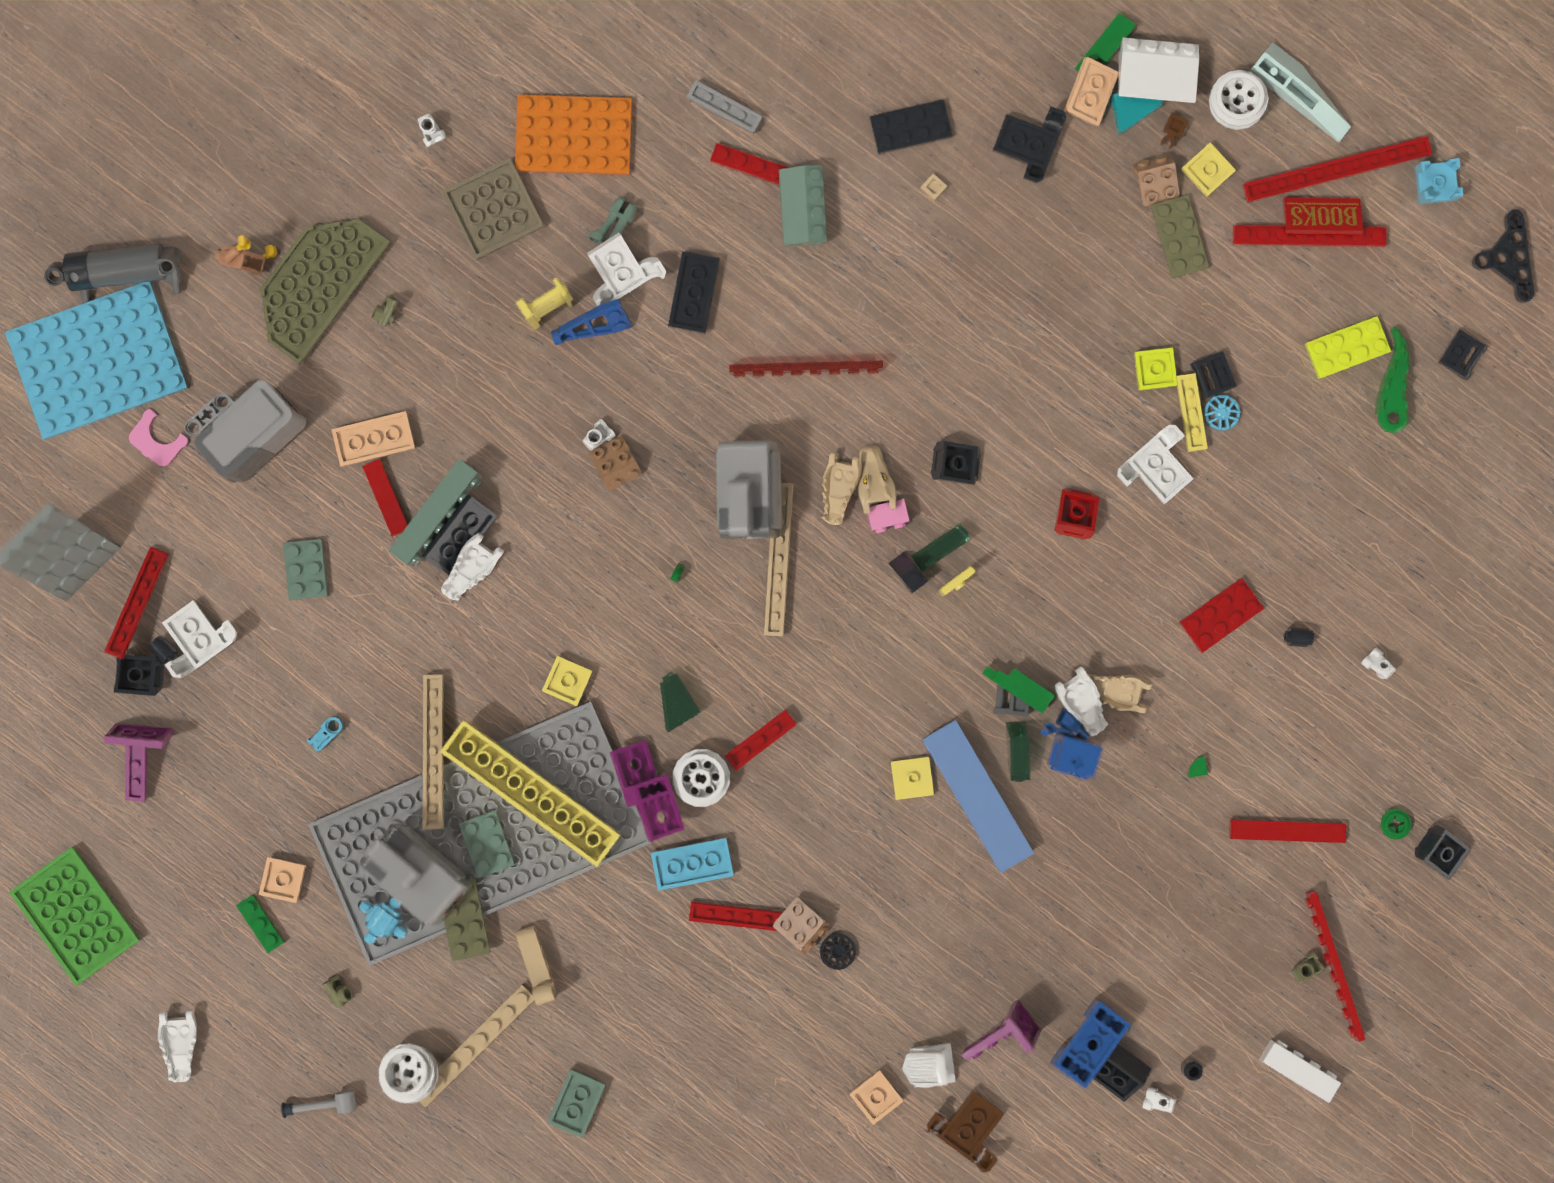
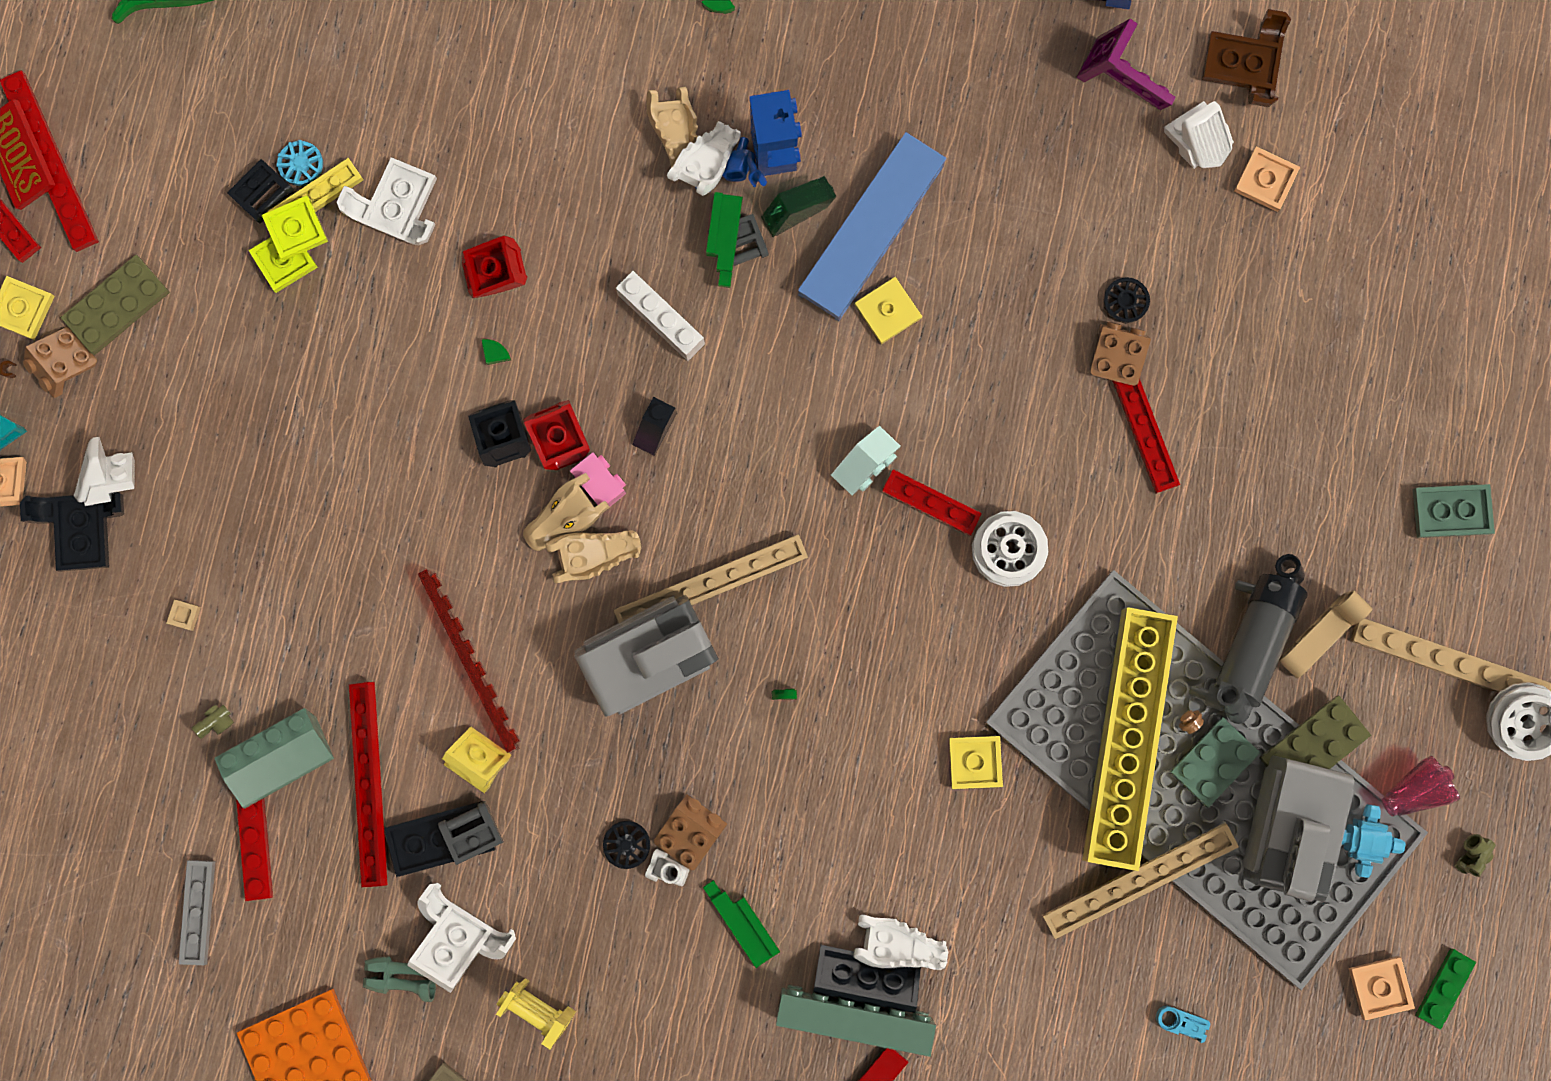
camera: 115 degrees left, 5 degrees down
(399, 975) = (1422, 789): none -> clear pink cone
(522, 841) = (1191, 721): none -> medium nougat plate
(535, 470) = (744, 925): none -> green piece
(553, 916) = (1258, 642): none -> dark grey piece
(614, 313) = (508, 924): blue plate -> none
(628, 416) = (626, 845): none -> black wheel
(647, 791) = (1058, 602): magenta bracket -> none
(676, 701) = (936, 619): clear green slope -> none
(680, 315) = (475, 840): none -> dark grey plate
(692, 864) = (1113, 512): medium azure plate -> none
(735, 342) = (476, 759): none -> light yellow bracket
(754, 260) = (368, 784): none -> red plate
(810, 708) = (866, 459): none -> light aqua brick
(849, 178) = (217, 719): none -> olive plate
(910, 127) = (122, 676): black plate -> none
(934, 502) = (557, 436): none -> red slope
(941, 547) = (606, 402): clear green slope -> none
(957, 582) = (637, 364): light yellow plate -> none
(985, 614) = (660, 316): none -> white brick
(1016, 486) = (494, 352): none -> green tile
(1056, 176) = (103, 474): none -> white piece
(1171, 387) = (295, 228): none -> neon yellow plate
(1221, 615) = (533, 57): red plate -> none
(1347, 347) = (160, 59): neon yellow plate -> none

